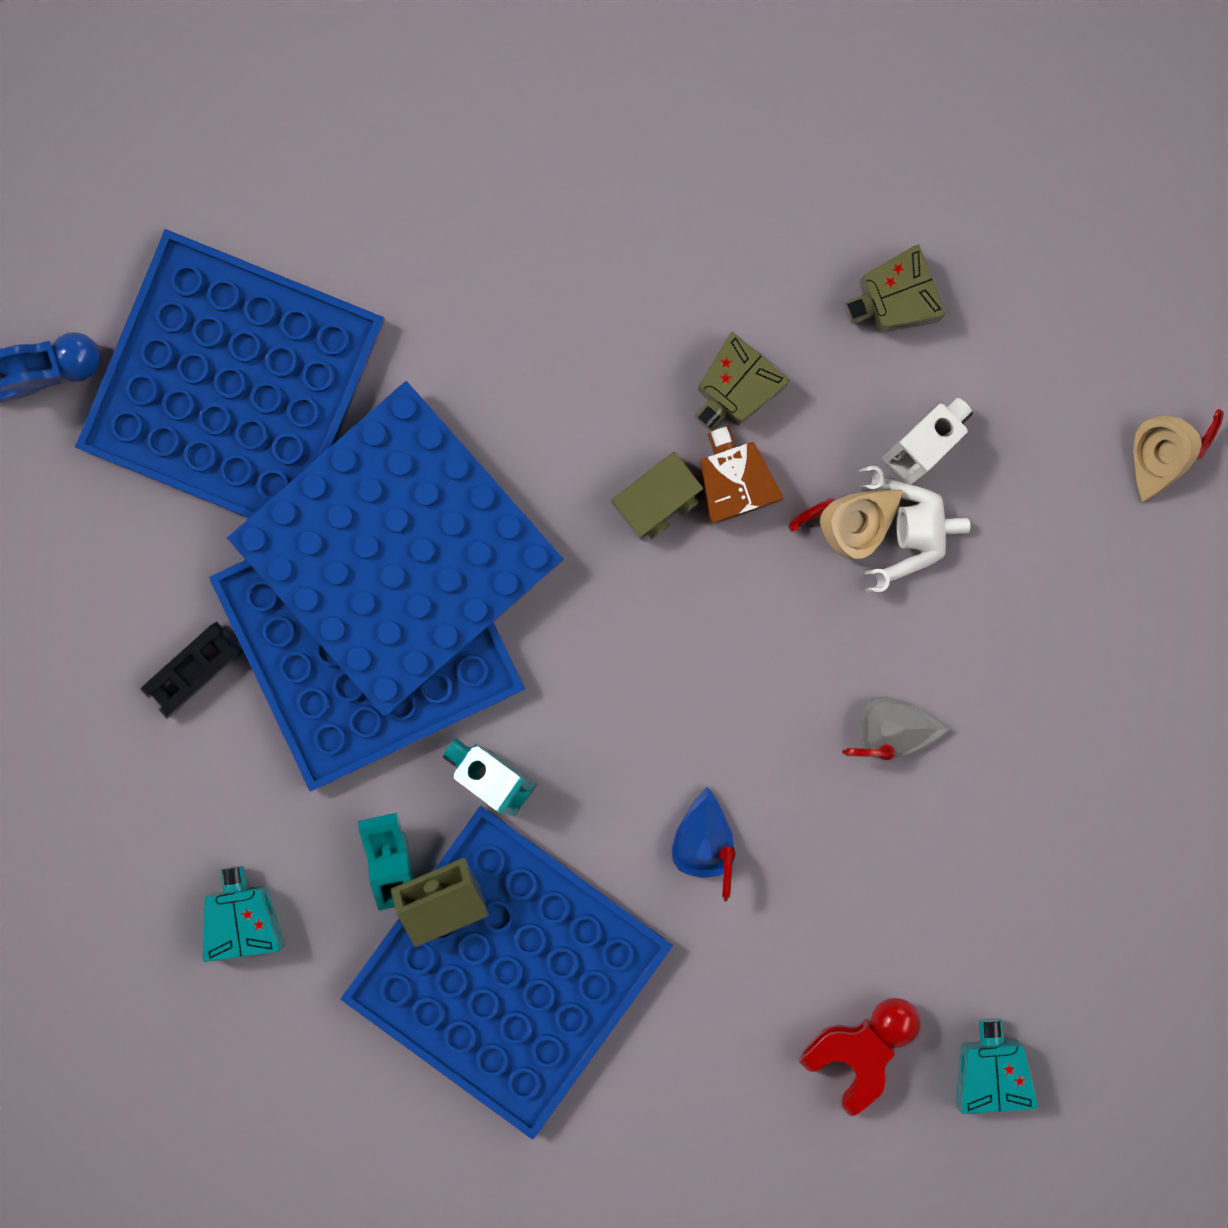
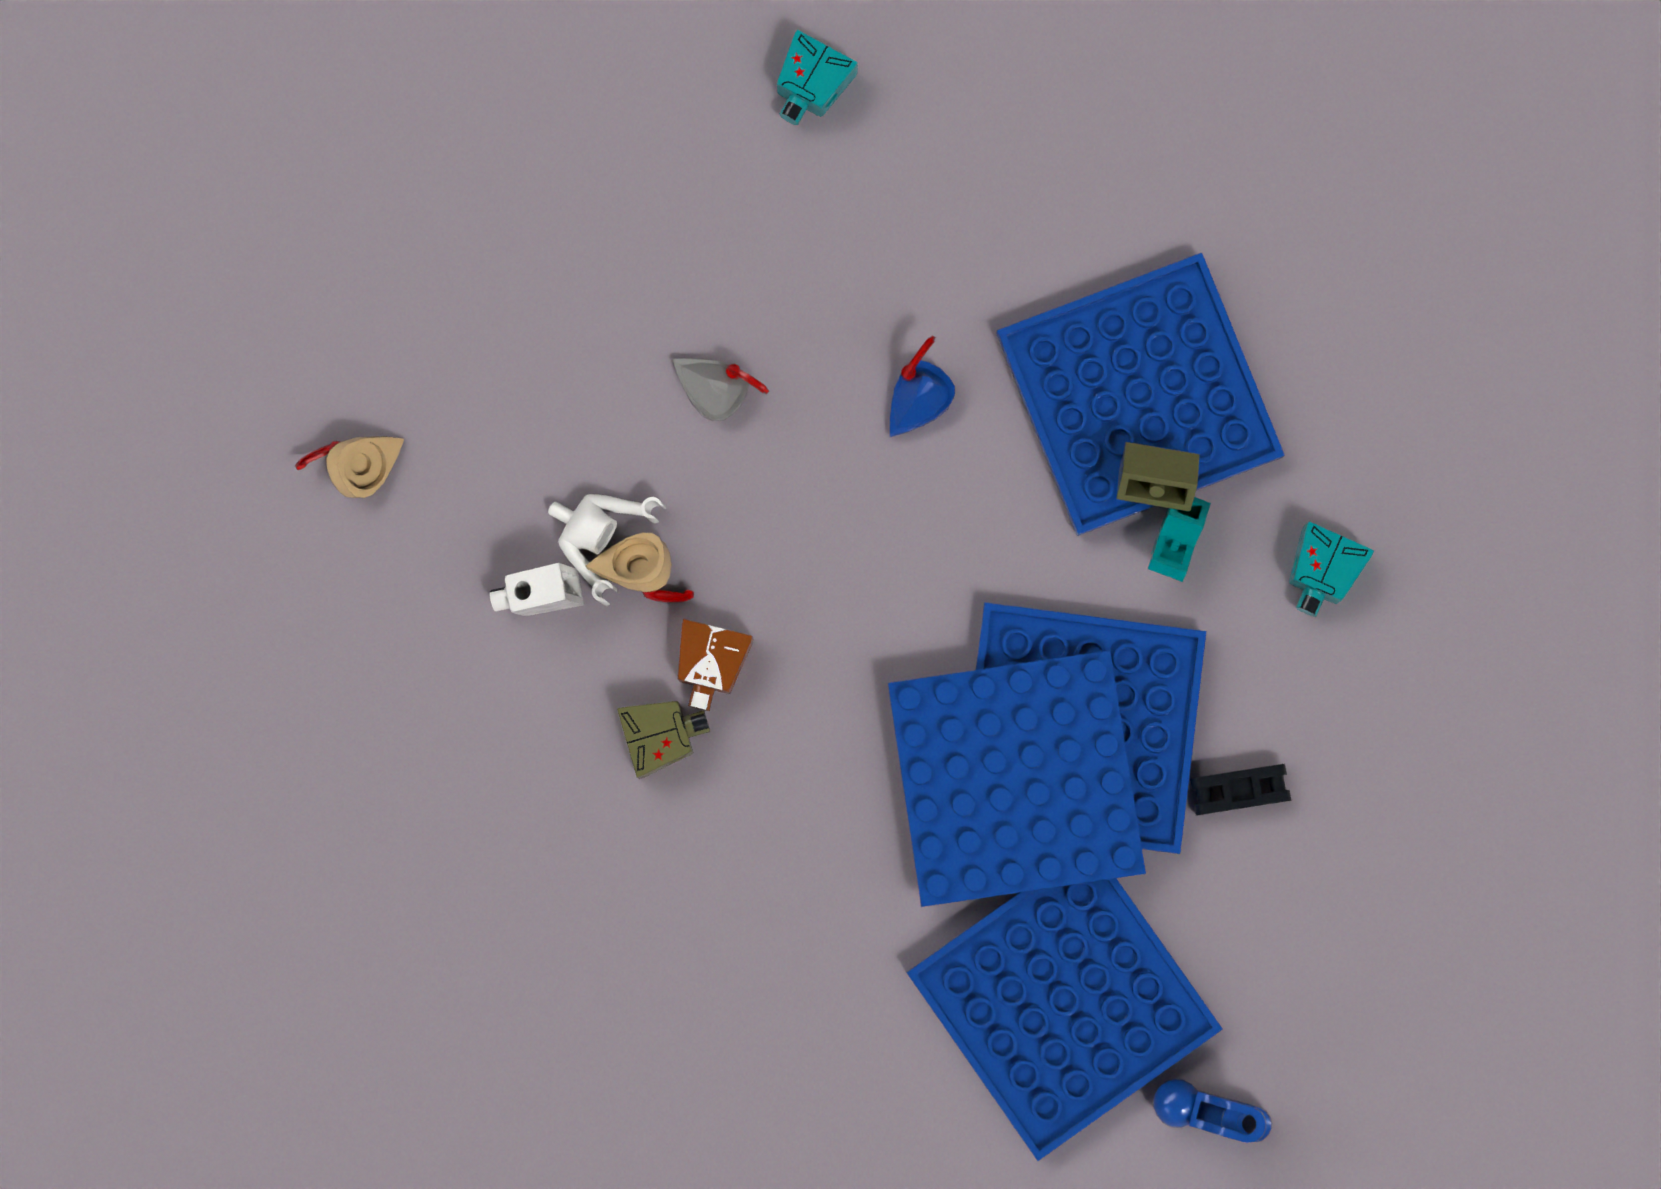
camera: 145 degrees left, 5 degrees down
(501, 786) = (1047, 538): torso -> none
(657, 496) = (780, 686): olive brick -> none
(865, 1049) = (899, 158): red piece -> none
(898, 294) = (485, 724): olive torso -> none

